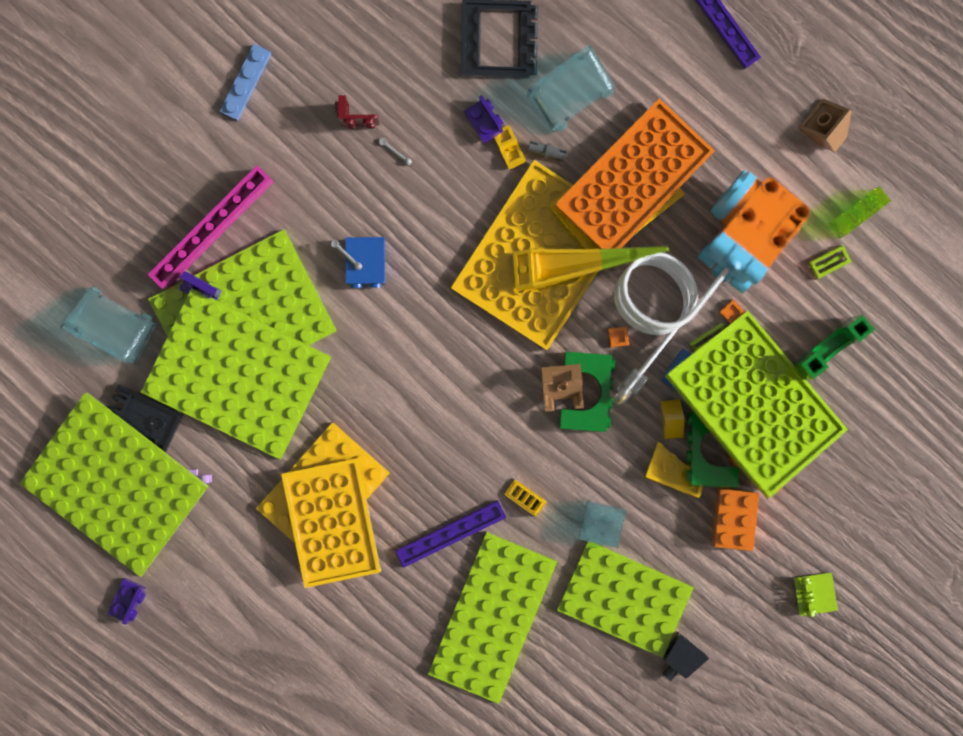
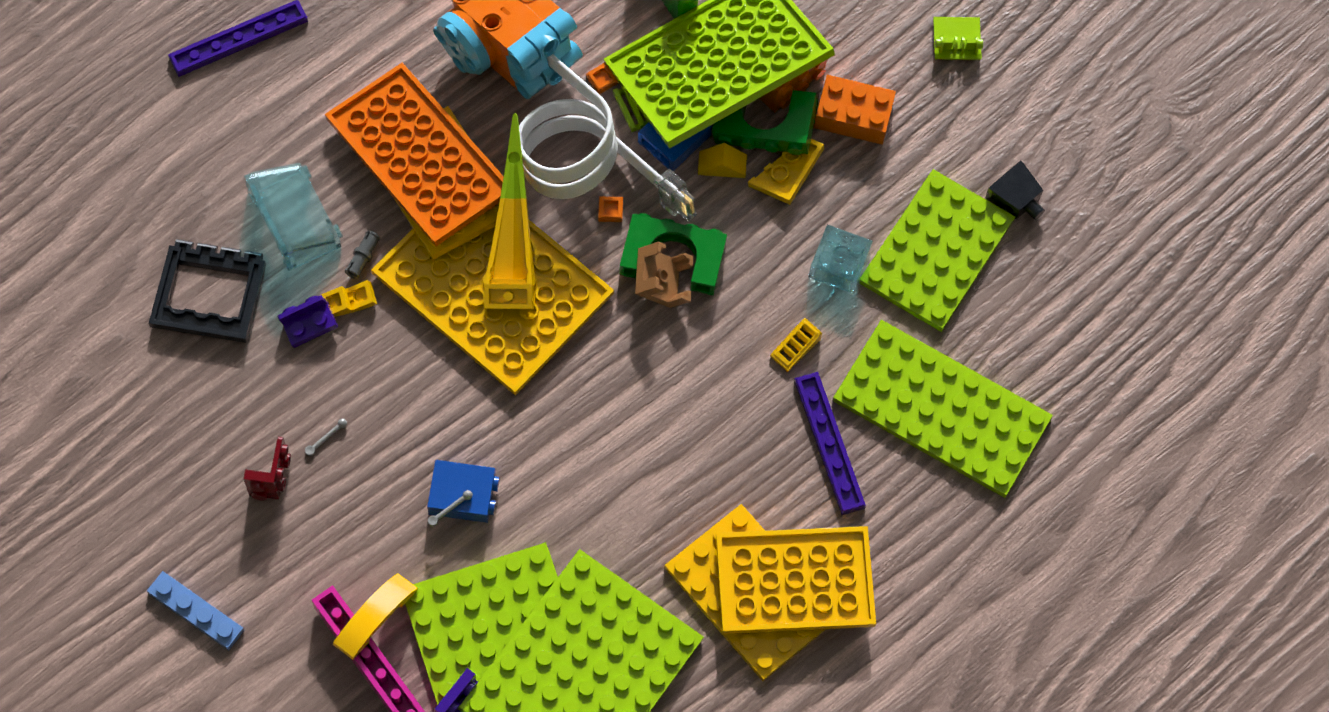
camera: 90 degrees left, 20 degrees down
(253, 214) = (373, 614): none -> yellow slope

